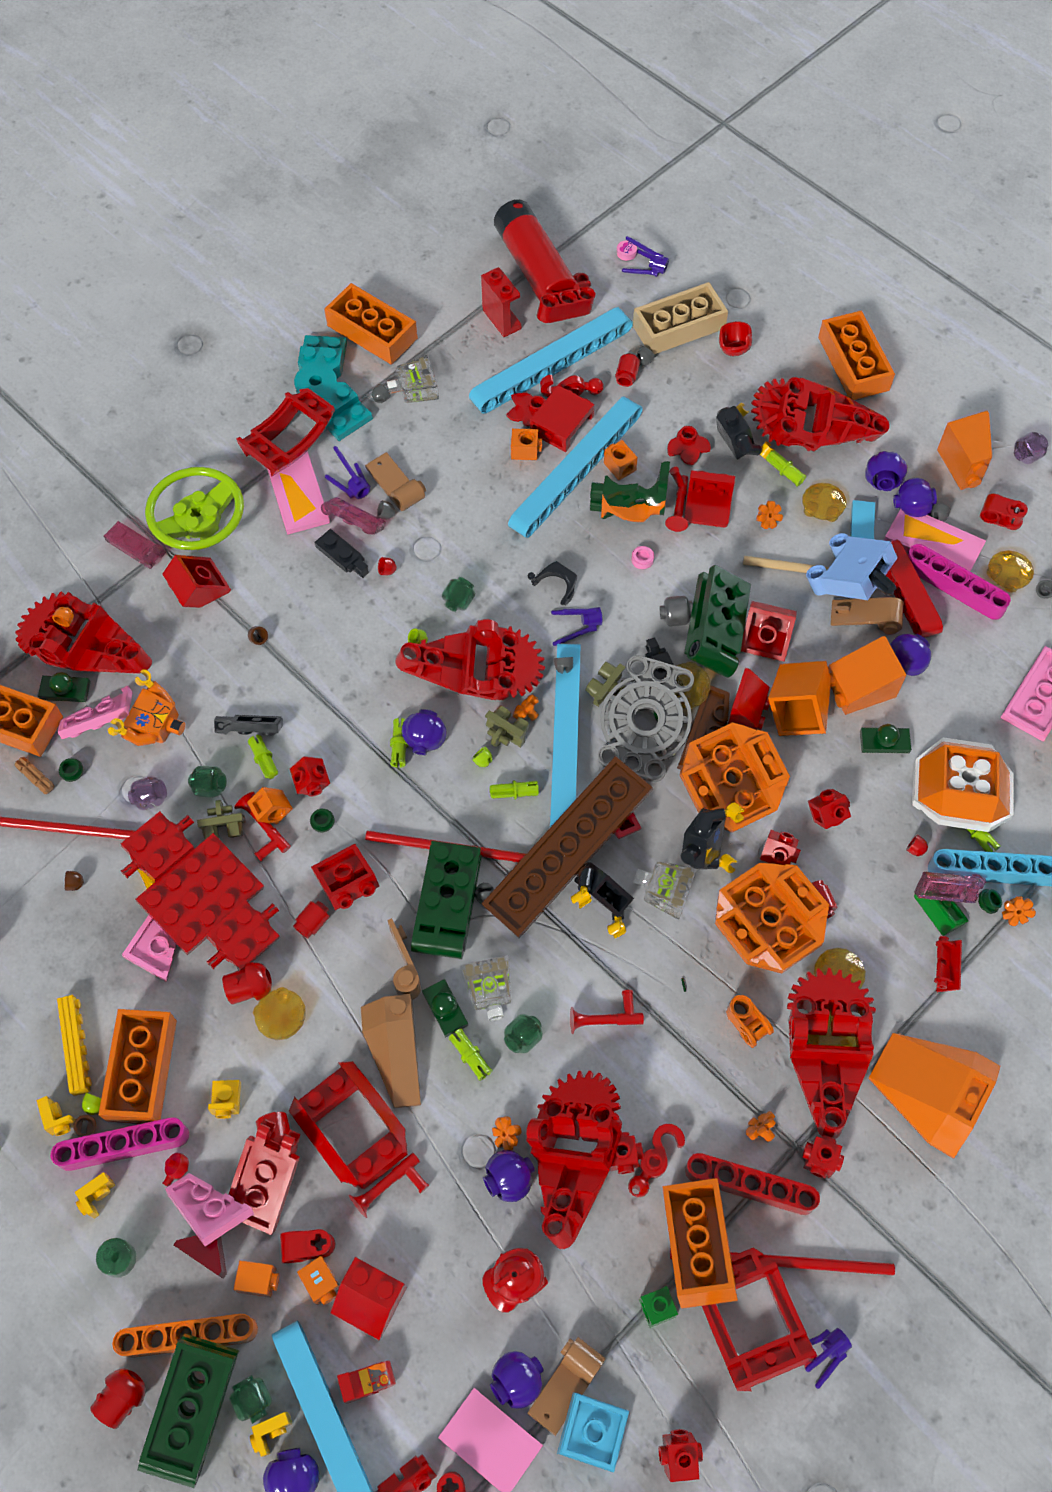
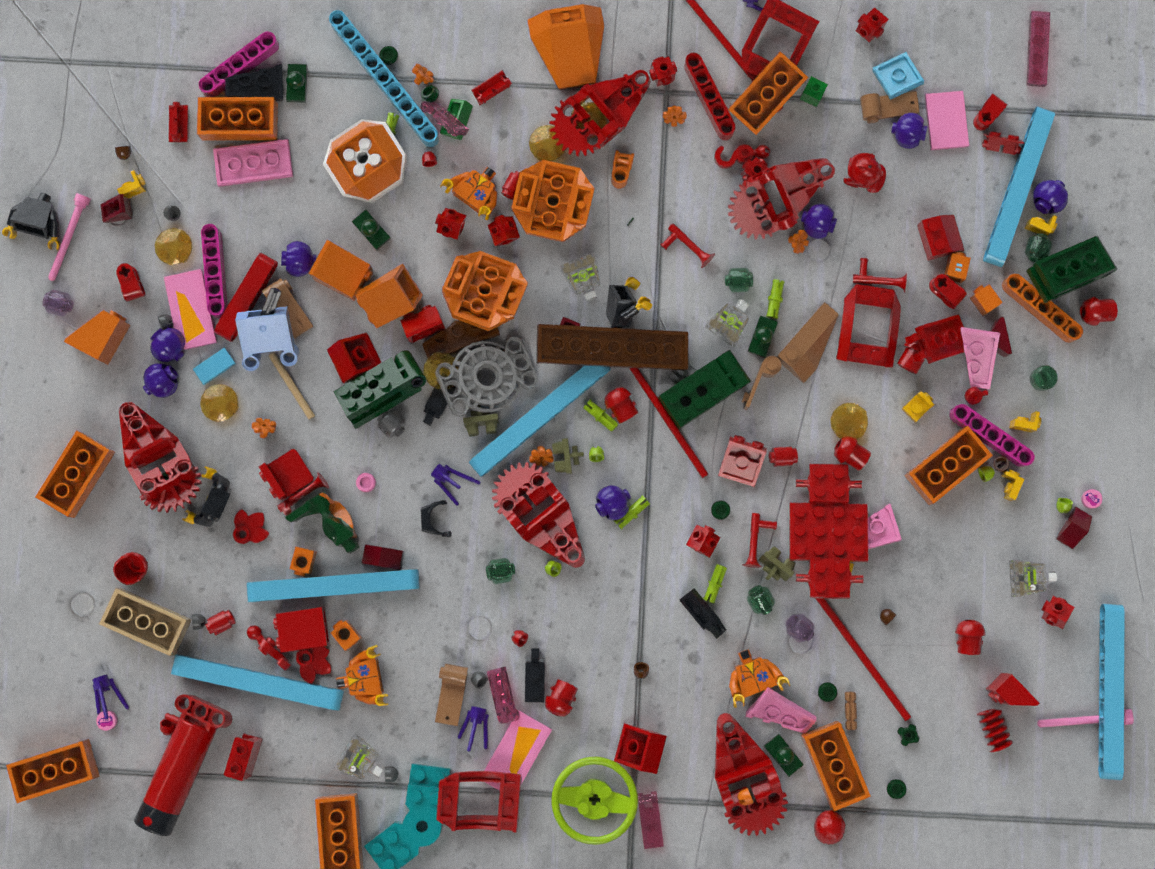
camera: 135 degrees left, 20 degrees up
(73, 1045) = (968, 517): yellow piece -> none
(269, 805) = (742, 545): orange brick -> none
(302, 553) = (561, 698): none -> red piece
(366, 1381) = (978, 201): red leg -> none
(473, 429) = (364, 678): none -> orange torso
(506, 812) = (620, 404): none -> red piece
(563, 519) = (382, 557): none -> dark red slope
(566, 662) = (495, 455): dark grey hinge -> none
(622, 189) = (52, 771): none -> orange brick
(704, 839) = (542, 270): black torso -> none
(786, 468) = (213, 448): lime axle -> none
(845, 858) = (474, 190): none -> orange torso

